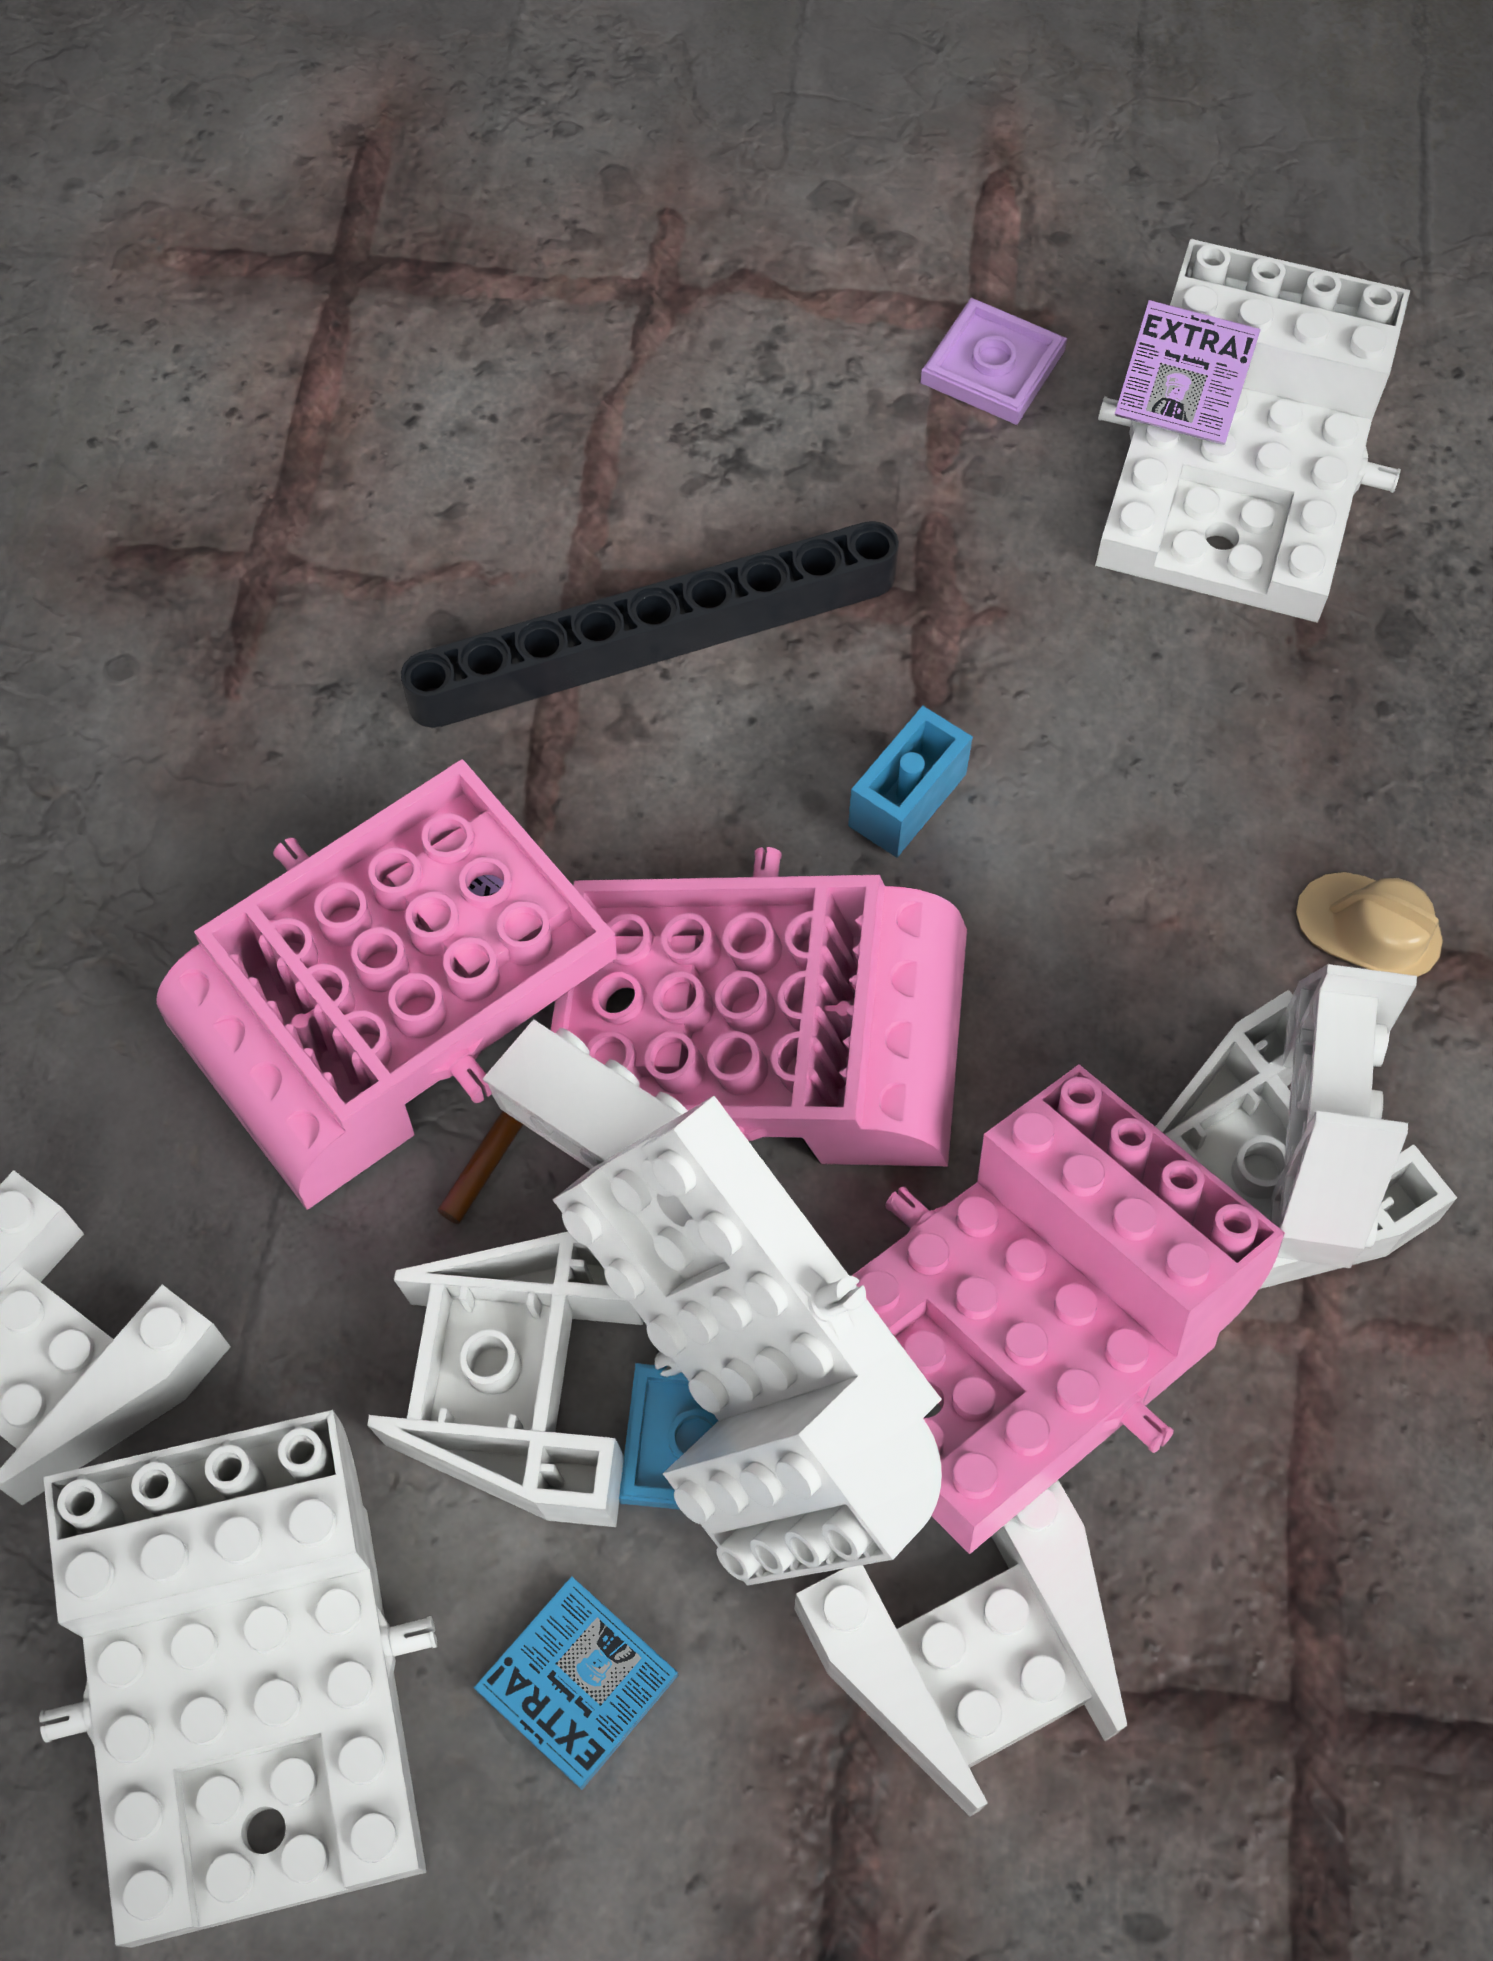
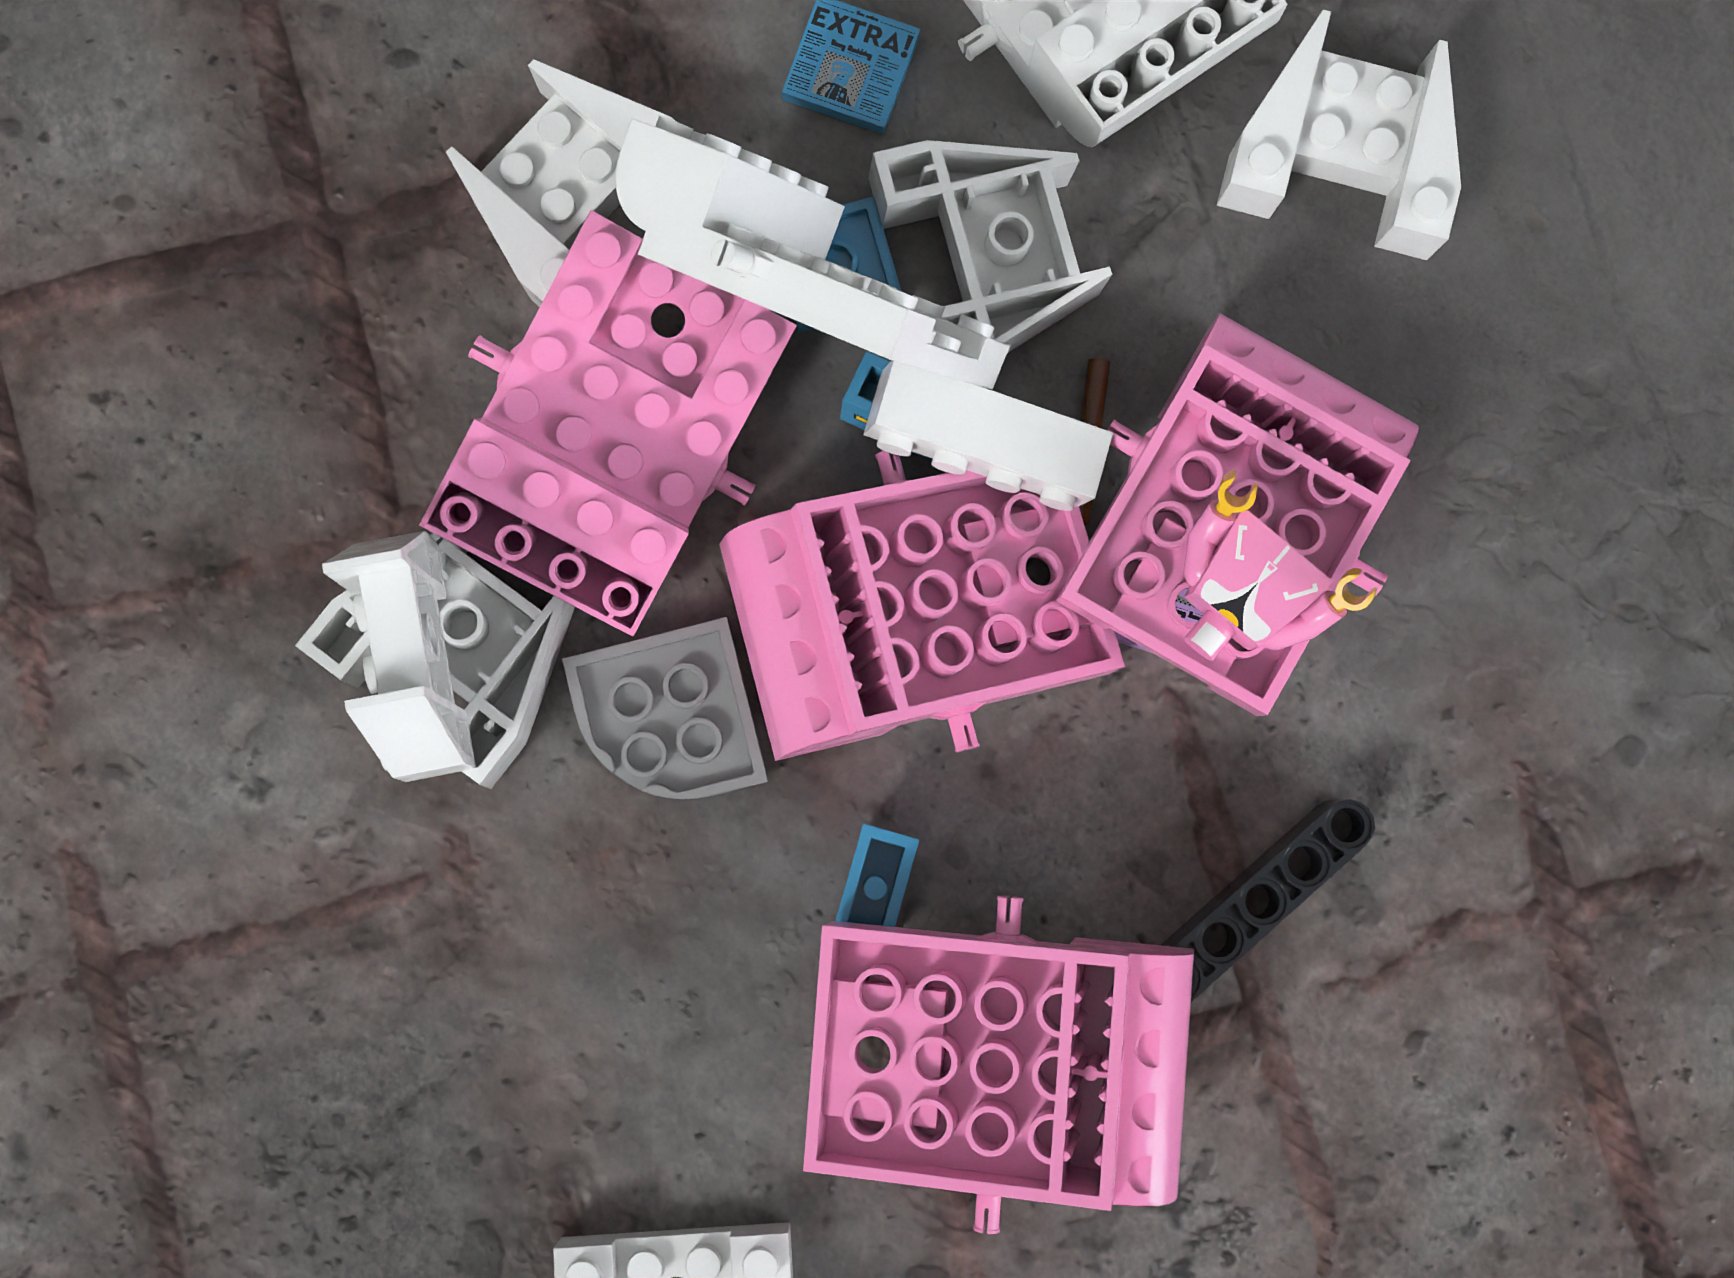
camera: 155 degrees right, 20 degrees up
(414, 850) = (1255, 582): none -> bright pink torso
(853, 565) = (1006, 1065): none -> bright pink piece
(1058, 1002) = (669, 712): none -> light grey plate
(1371, 922) = (434, 918): tan piece -> none

